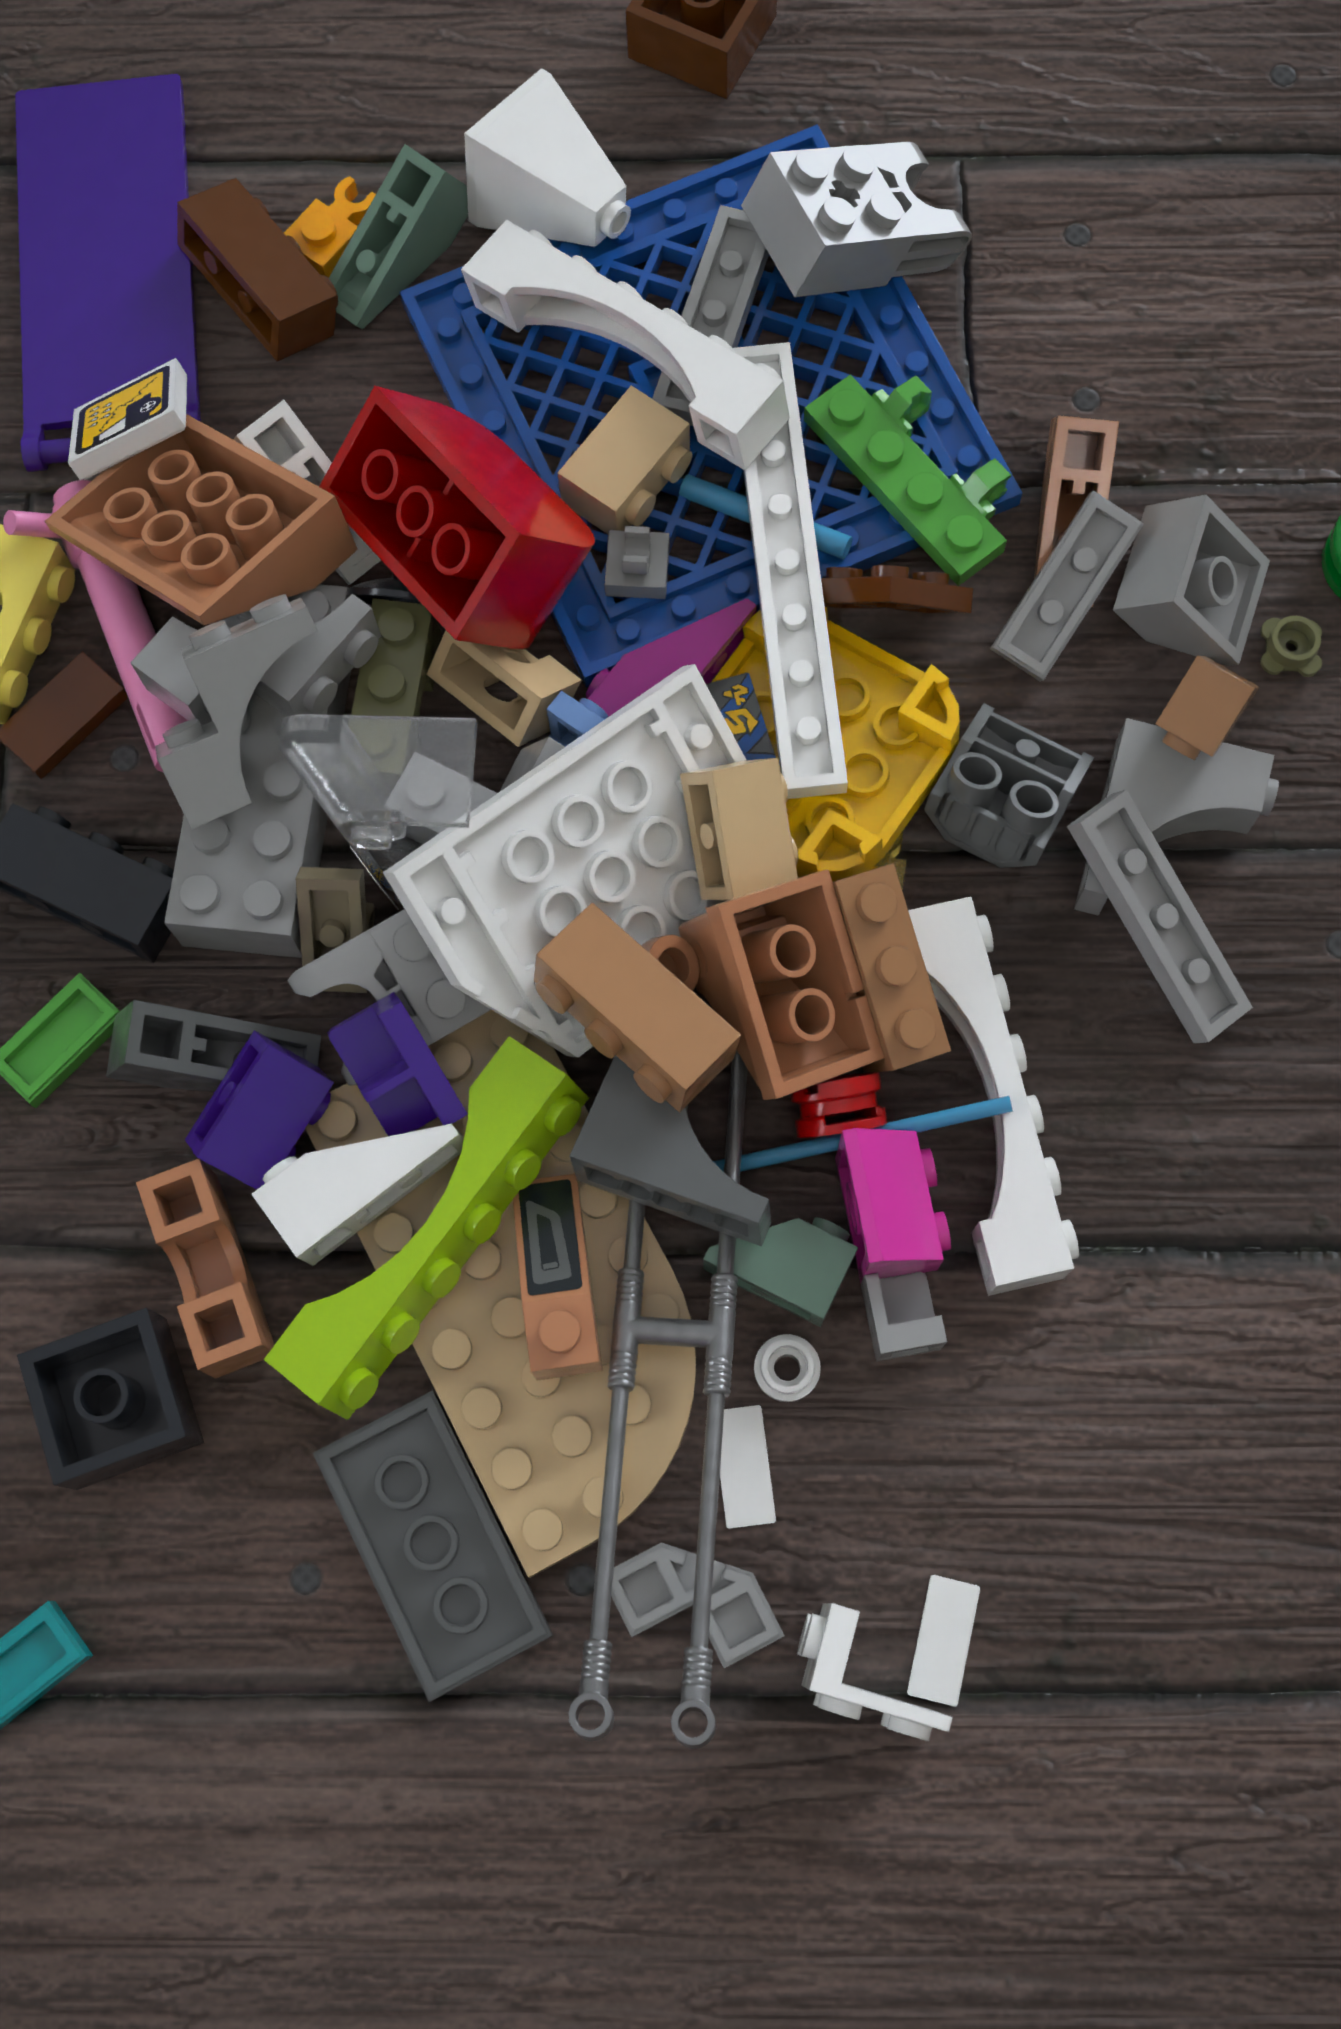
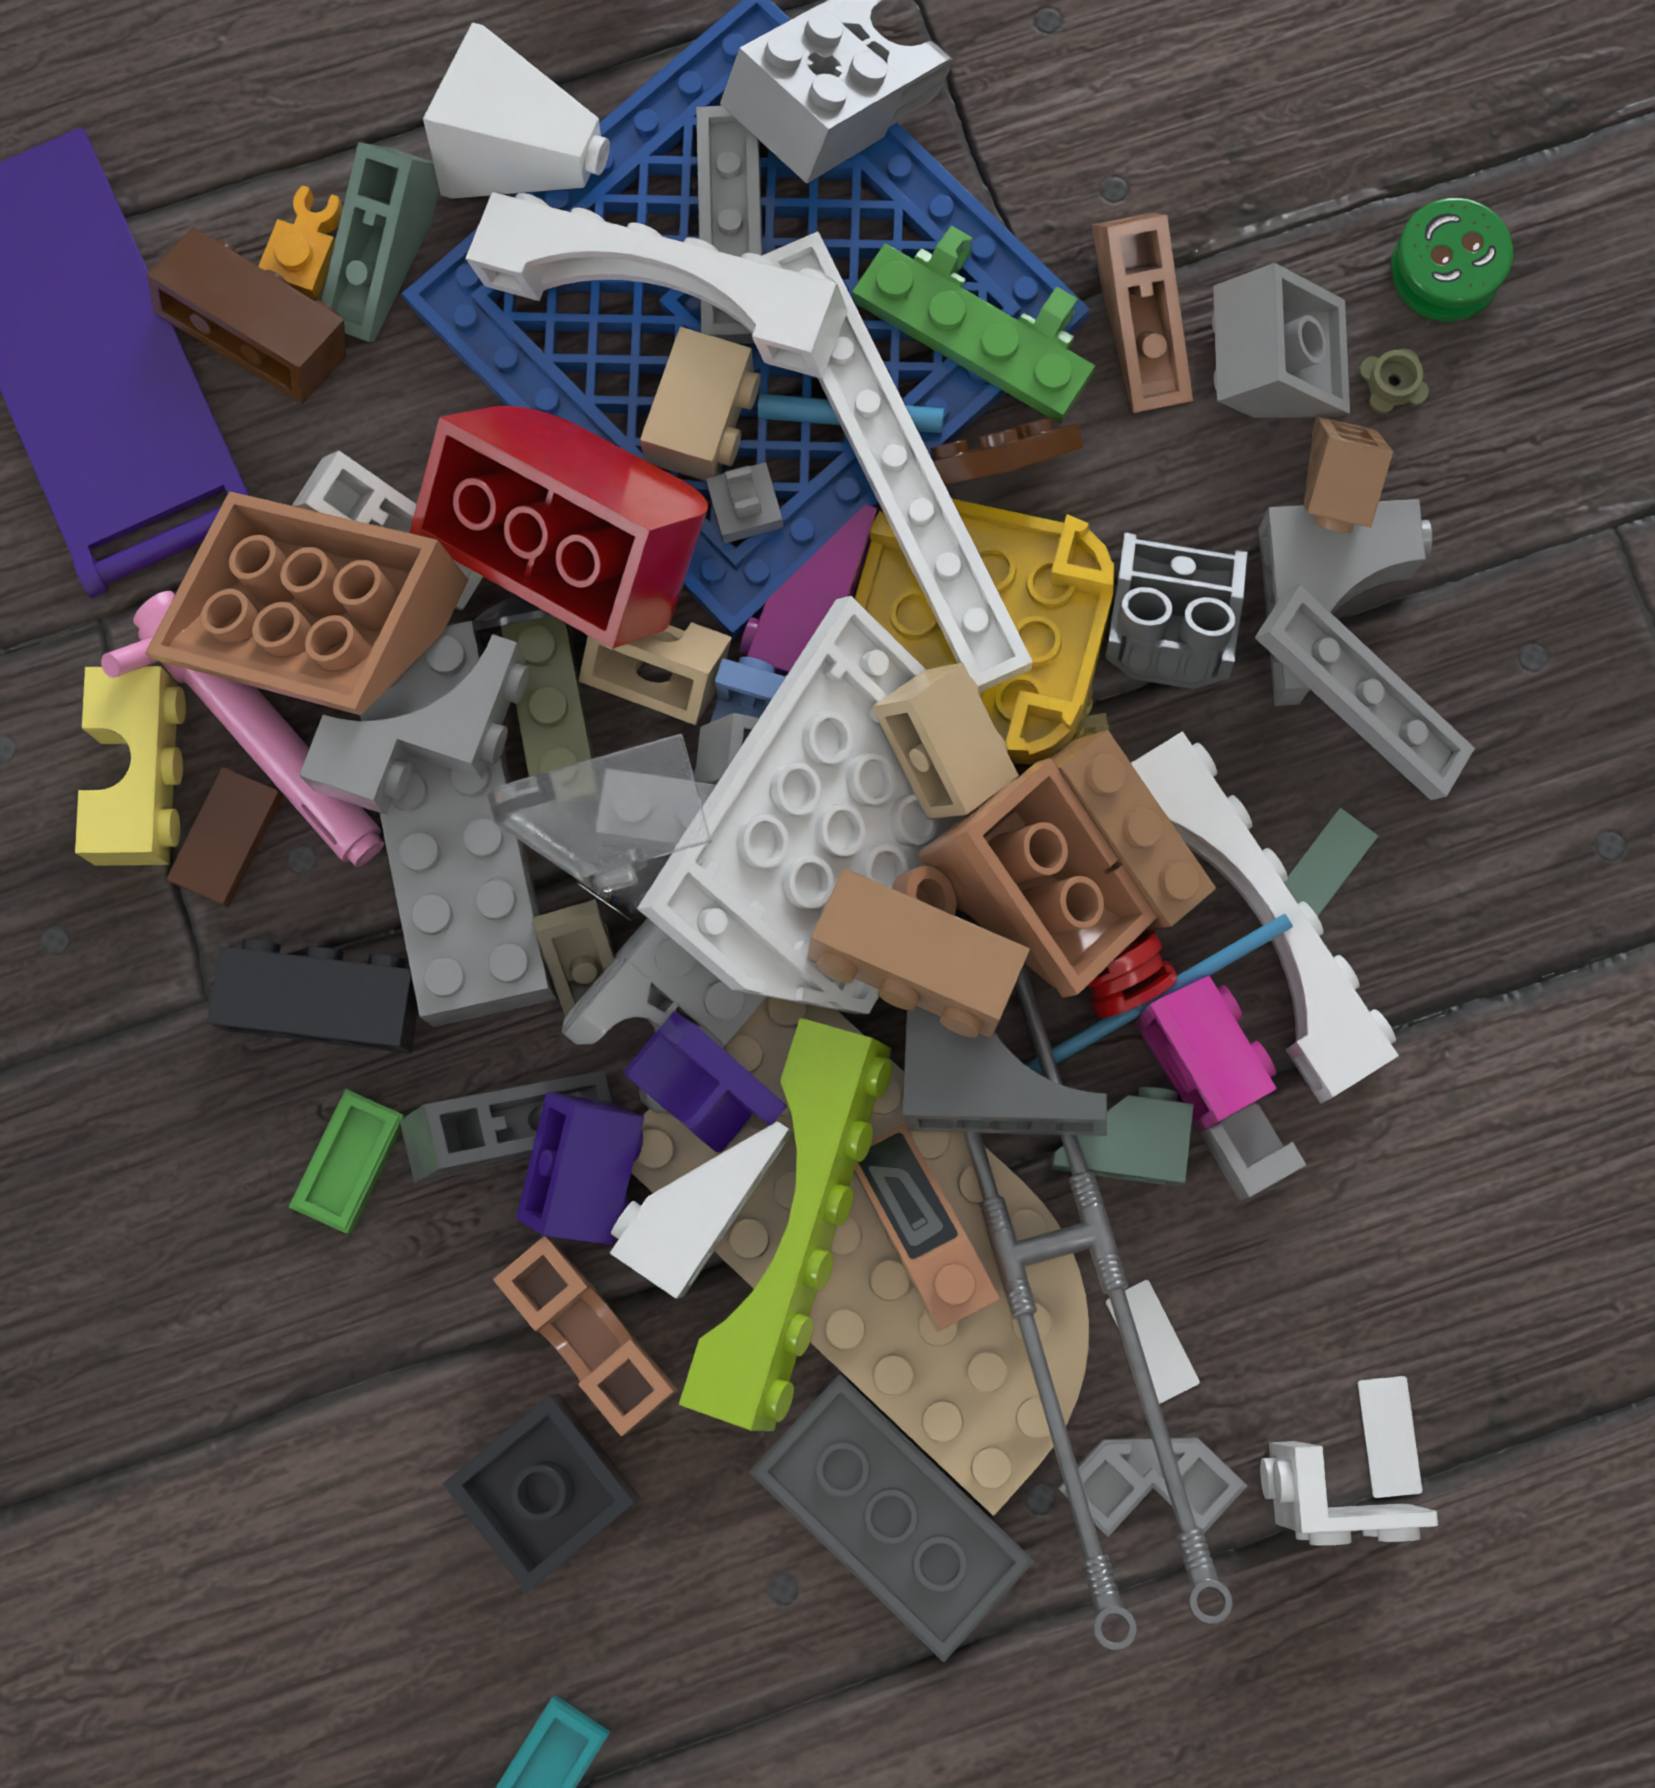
camera: 20 degrees left, 5 degrees up
(128, 420) = (185, 518): tile -> none
(226, 667) = (407, 755): light grey arch -> none
(743, 715) = (901, 621): sticker -> none
(793, 1347) = (1181, 1230): white plate -> none
(1066, 586) = (1165, 391): light grey tile -> none
(1075, 1070) = (1329, 861): none -> sand green sticker

